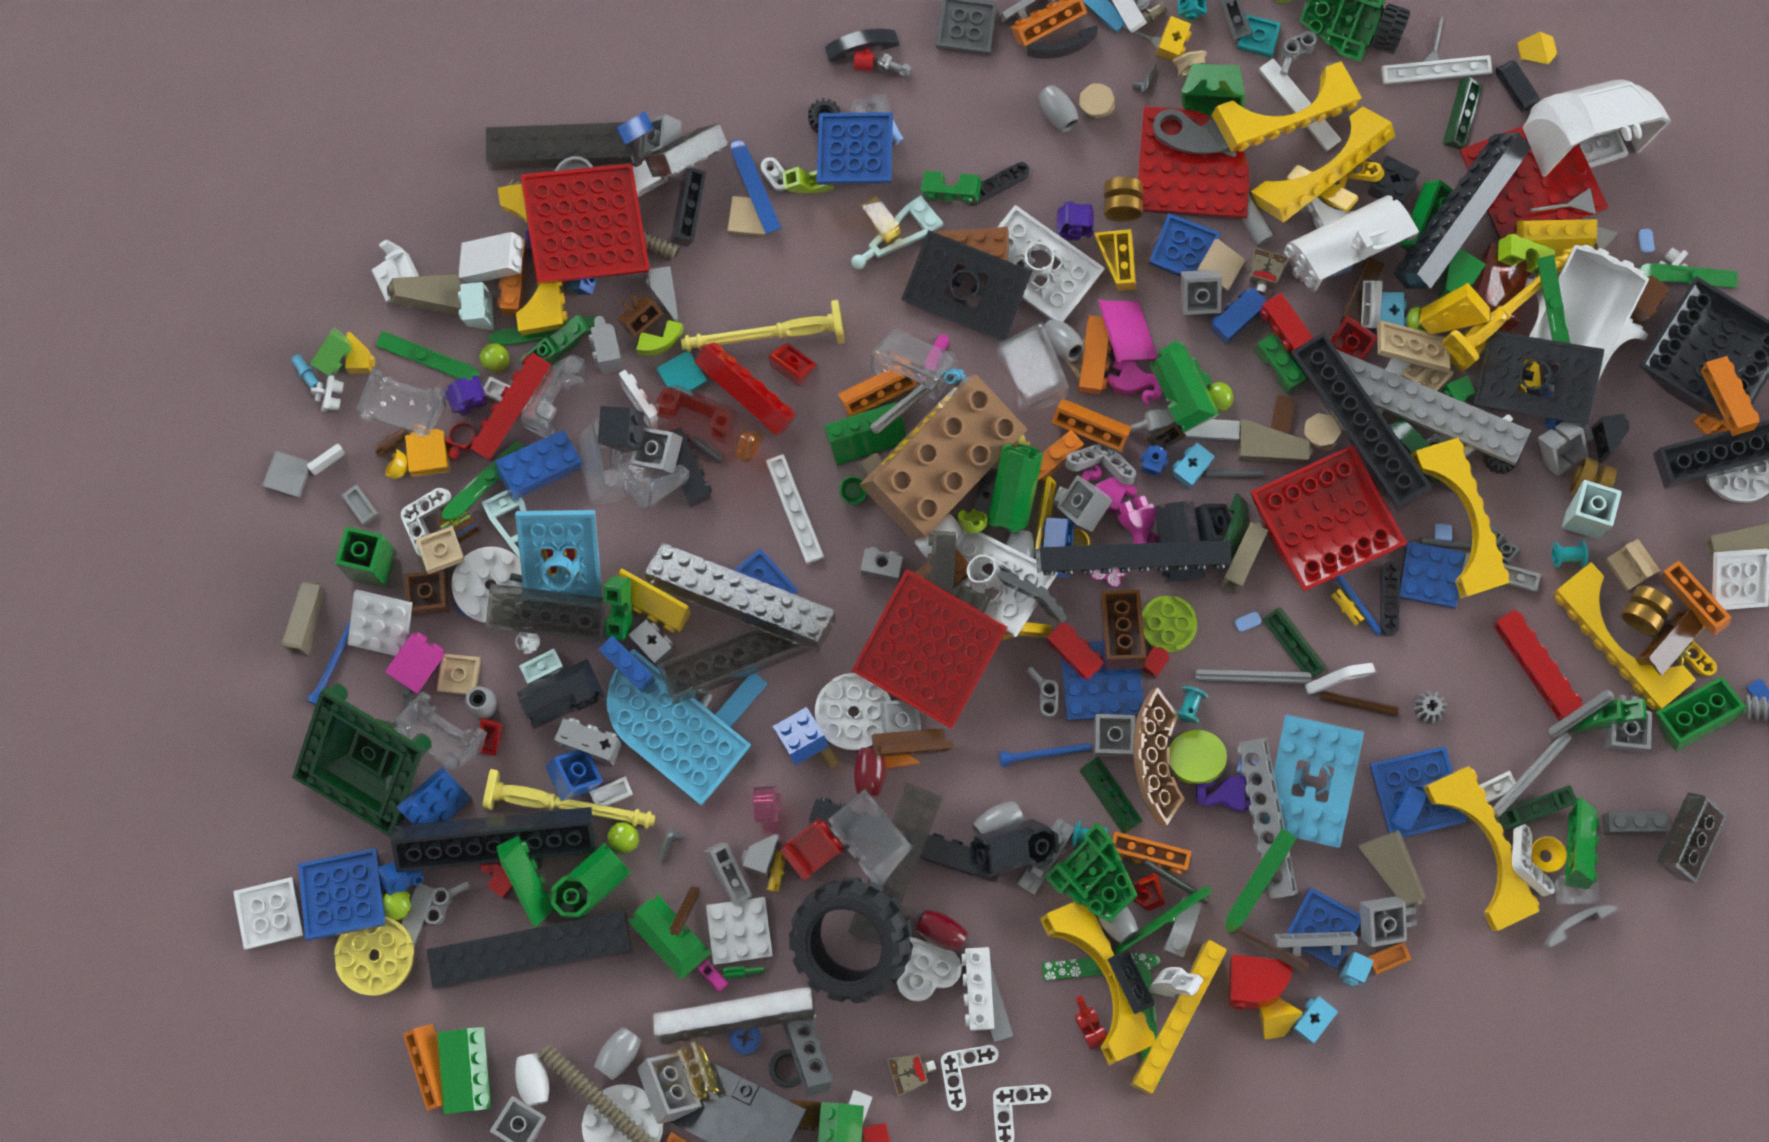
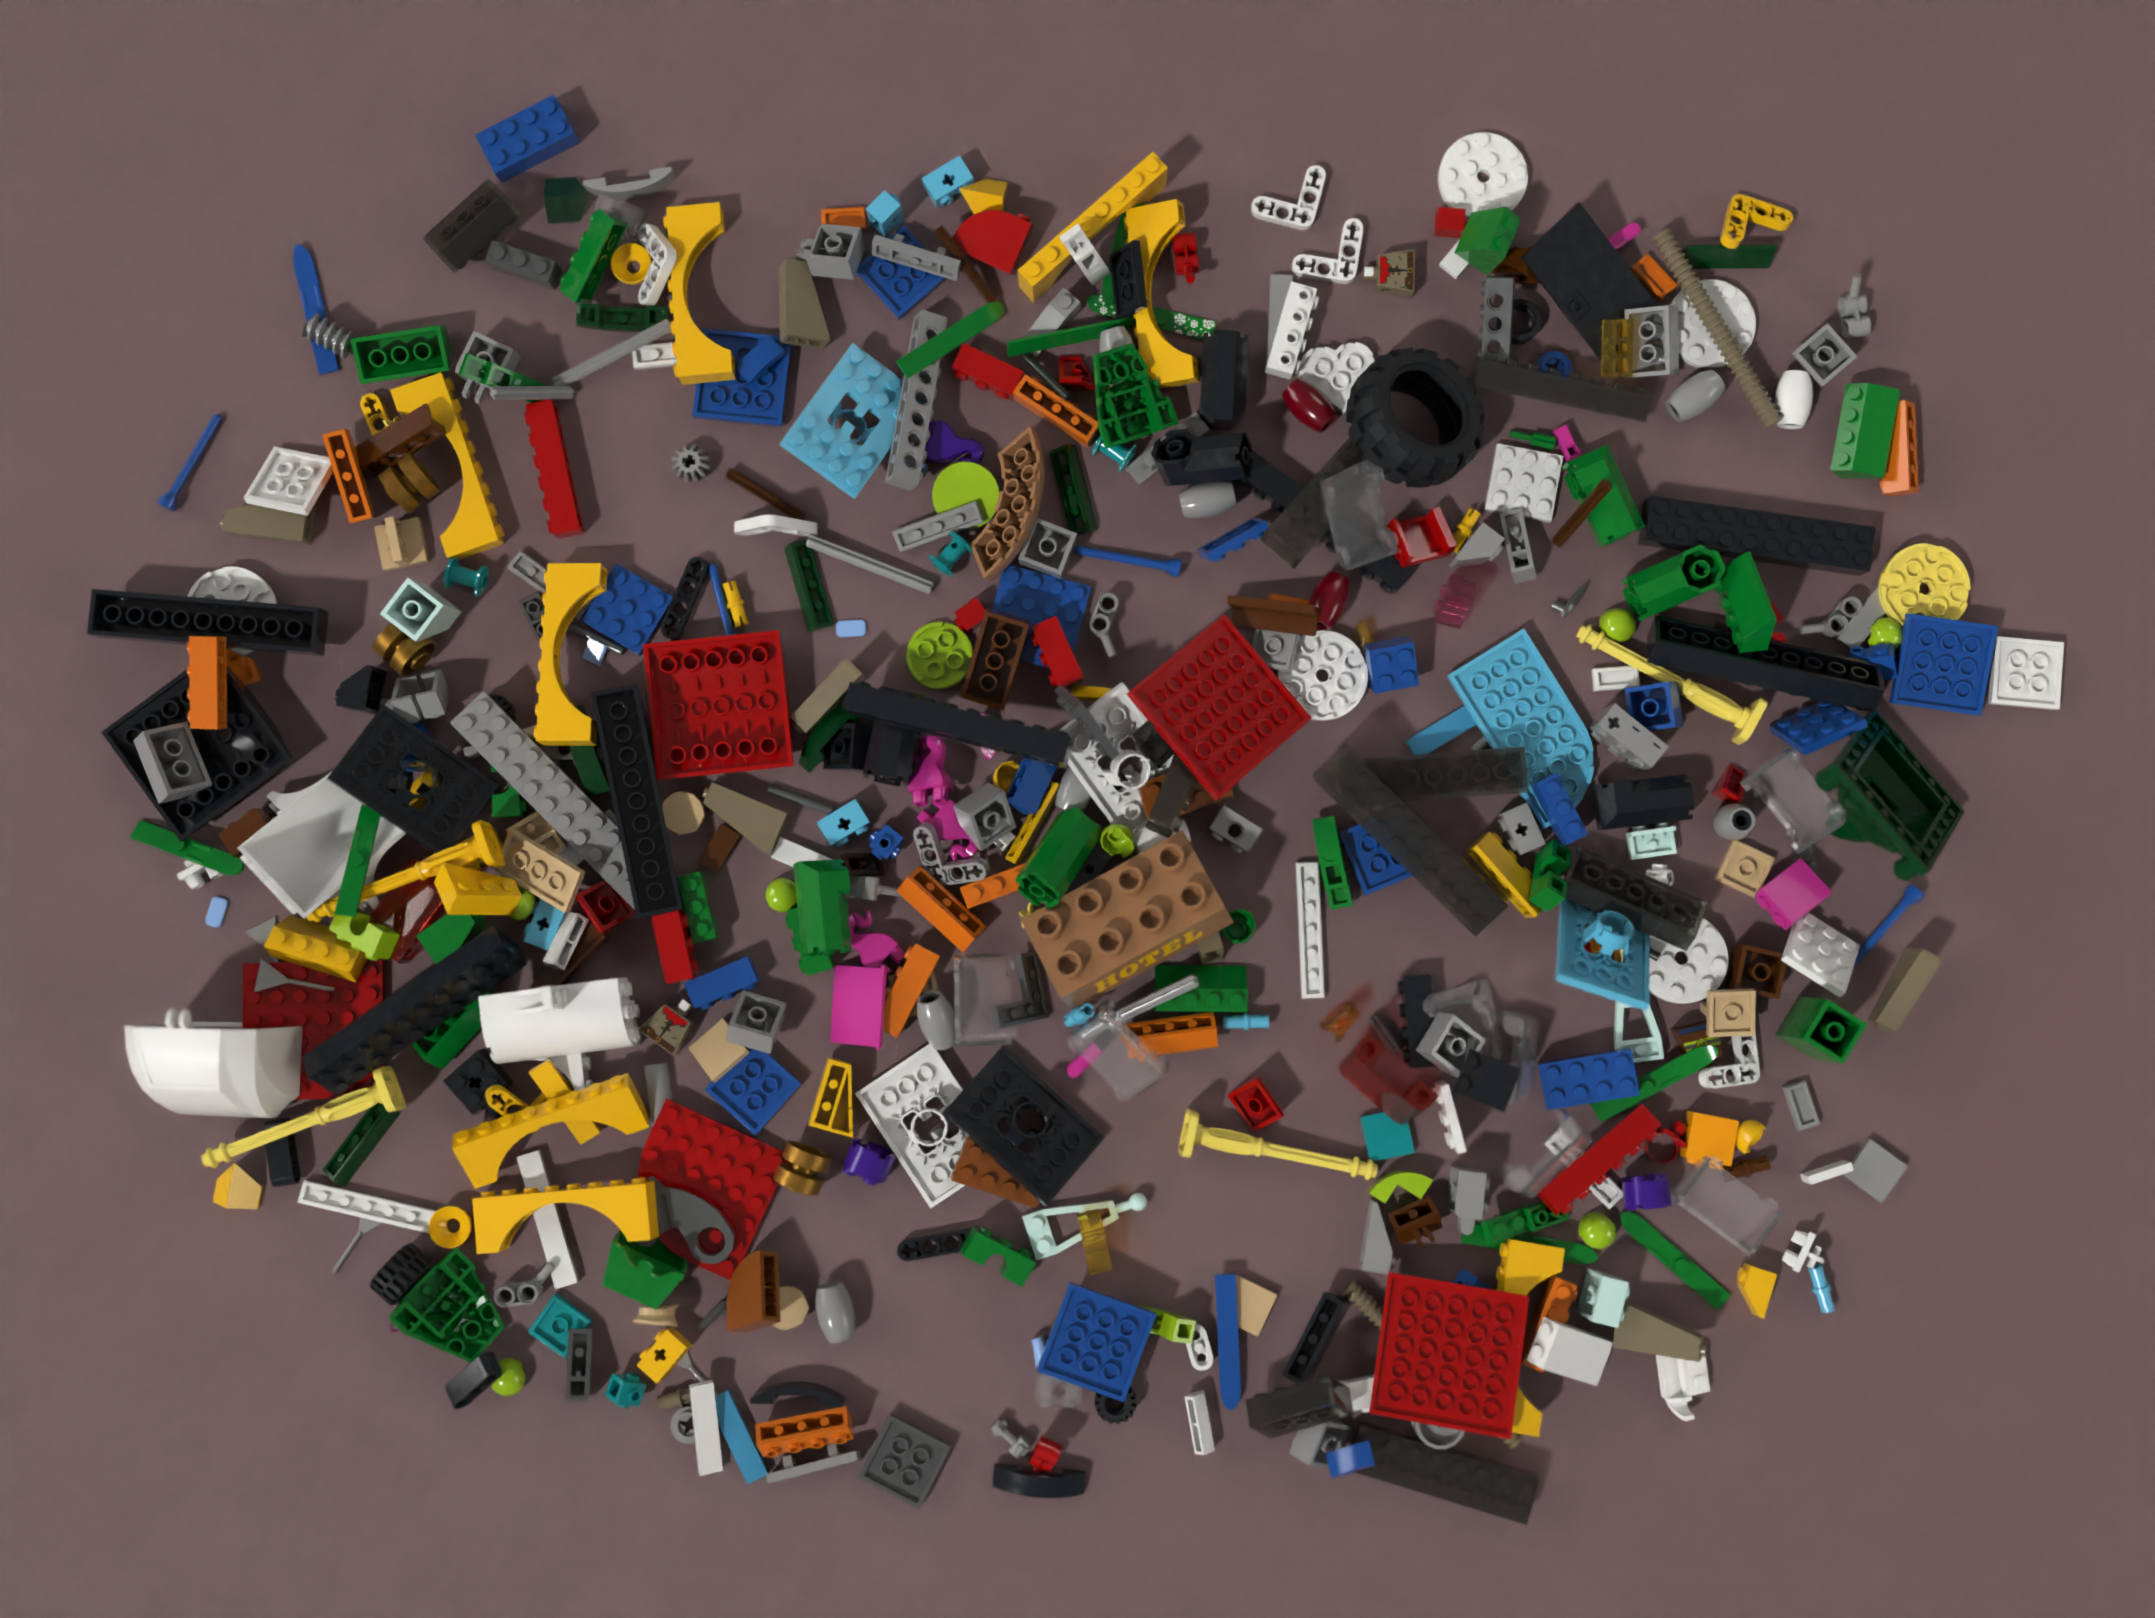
camera: 160 degrees left, 10 degrees up
(331, 352) = (1789, 1298): bright green slope -> none
(745, 388) = (1321, 1090): red brick -> none
(755, 122) = (1199, 1423): none -> white piece
(796, 564) = (1332, 862): none -> green slope
(820, 421) = (1246, 1021): none -> medium azure pin
(965, 794) = (1233, 539): none -> blue plate
(998, 369) = (1034, 1003): none -> dark grey plate
(1021, 926) = (1223, 379): none -> black brick
(1124, 100) = (754, 1293): none -> dark orange brick
(1210, 725) = (938, 526): none -> light grey tile
(1219, 866) = (986, 372): none -> red brick
(1369, 67) = (439, 1227): none -> yellow piece
(1459, 151) = (384, 1091): none -> light yellow piece
(1627, 893) = (564, 200): none -> clear green slope
(1679, 932) = (527, 138): none -> blue brick
(1728, 329) = (172, 762): none -> light grey slope

